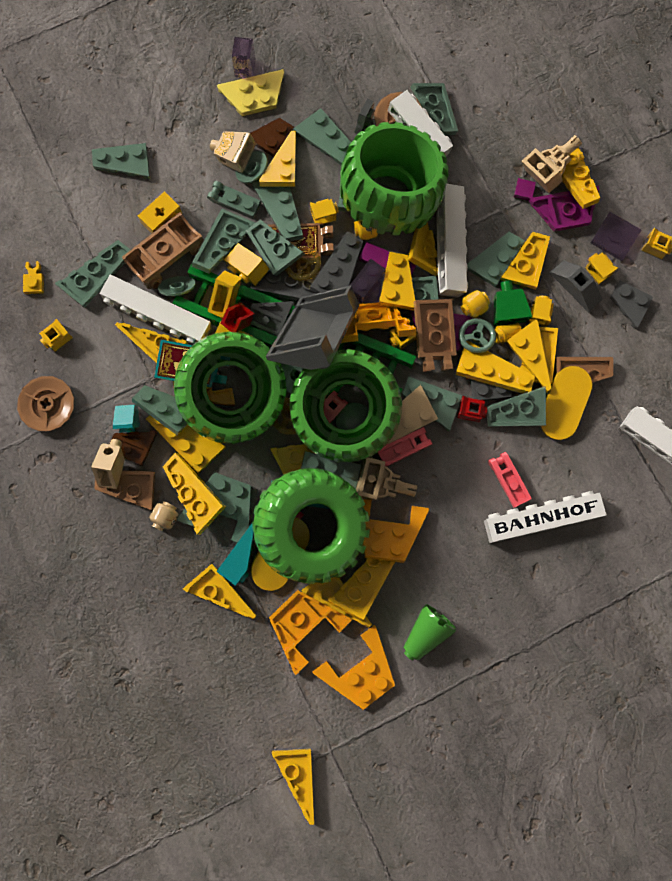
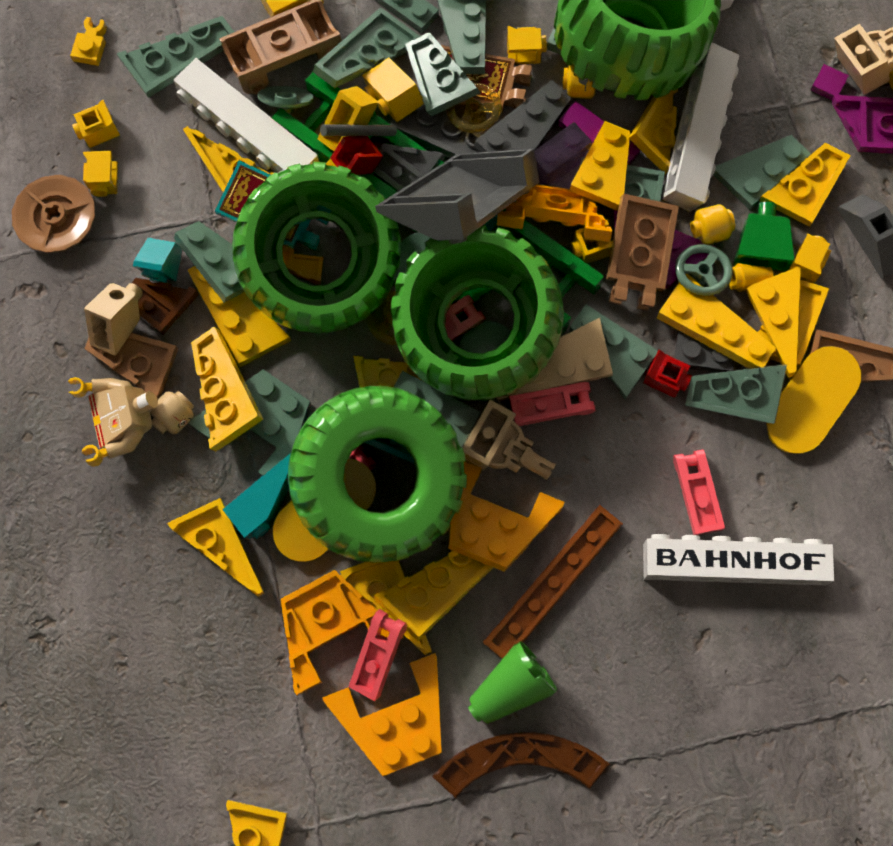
camera: 20 degrees right, 5 degrees down
(68, 368) = (100, 173): none -> yellow window
(131, 527) = (118, 415): none -> tan torso
(234, 301) = (357, 130): none -> dark grey bar
(340, 637) = (377, 655): none -> coral plate
(435, 560) = (553, 582): none -> dark orange tile
(440, 670) = (520, 749): none -> reddish brown tile

